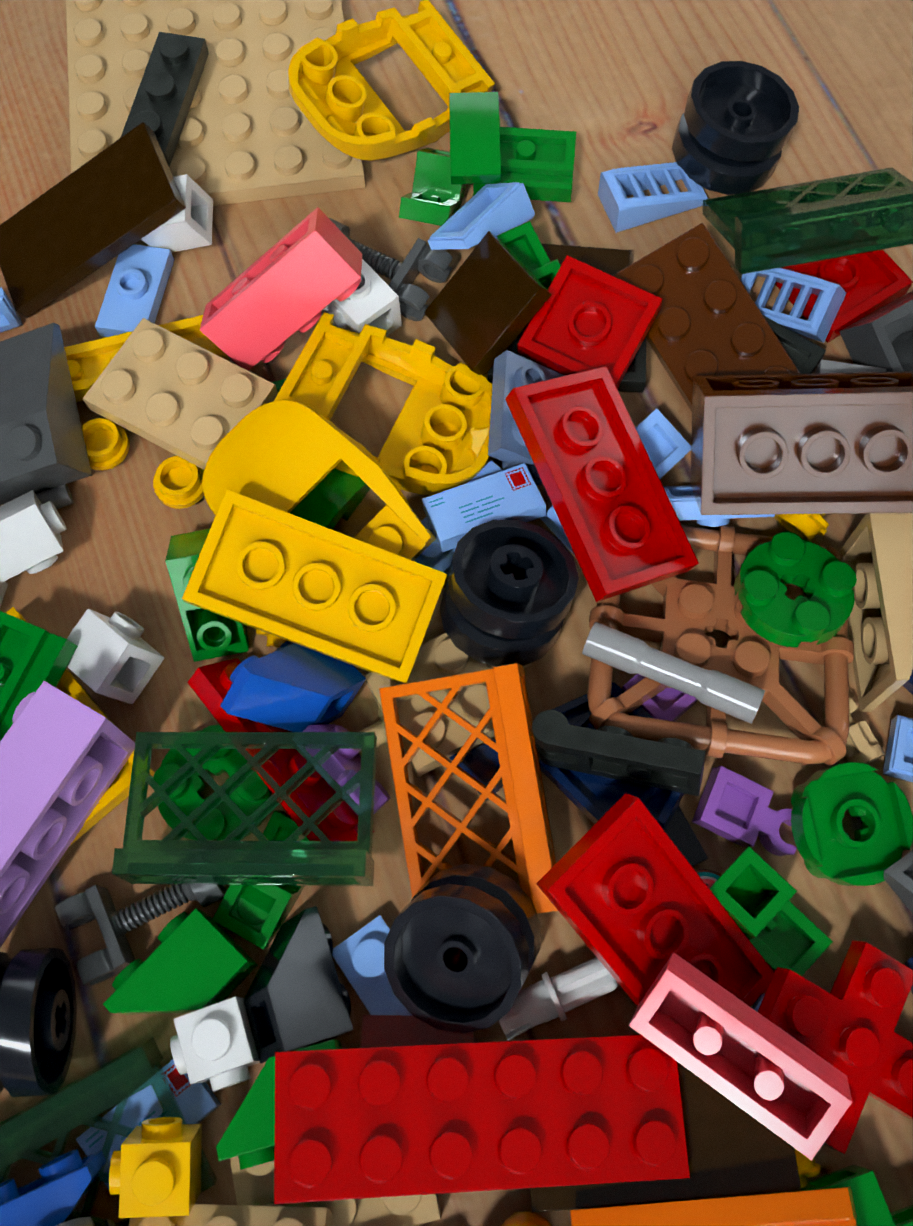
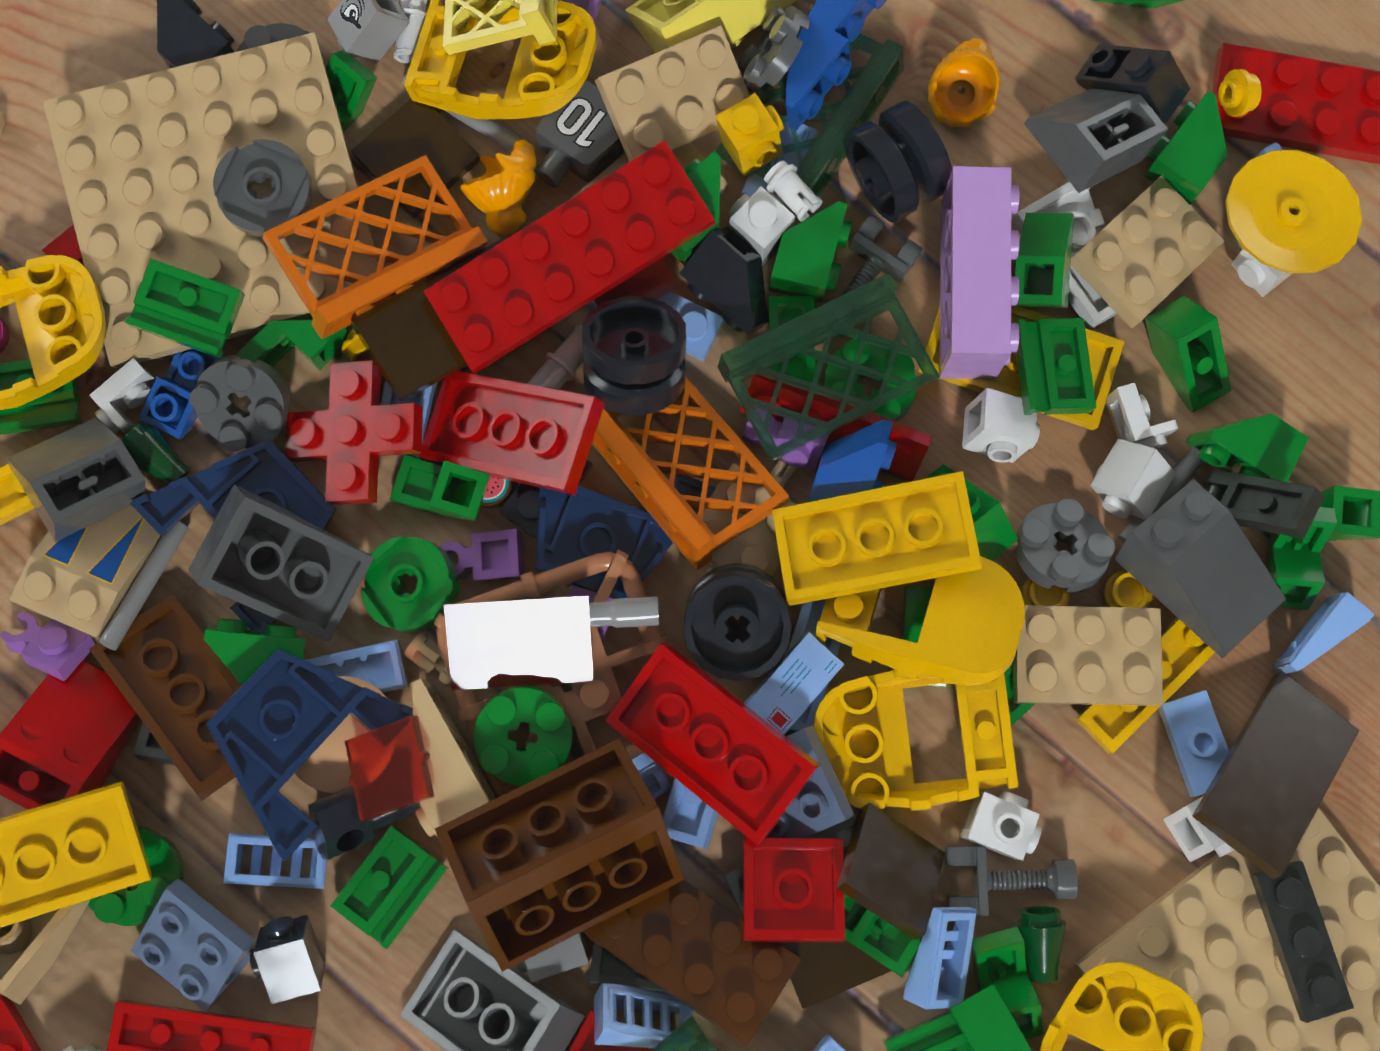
camera: 145 degrees right, 10 degrees up
(104, 503) = (1076, 527): none -> dark grey plate
(156, 1055) = (792, 190): none -> white pin
(283, 291) = (1059, 779): coral brick -> none
(378, 209) = (1043, 939): none -> dark green cone
(618, 755) = (598, 535): pearl dark grey plate -> none
(743, 1056) = (424, 369): coral brick -> none
(762, 676) = (519, 642): none -> sticker

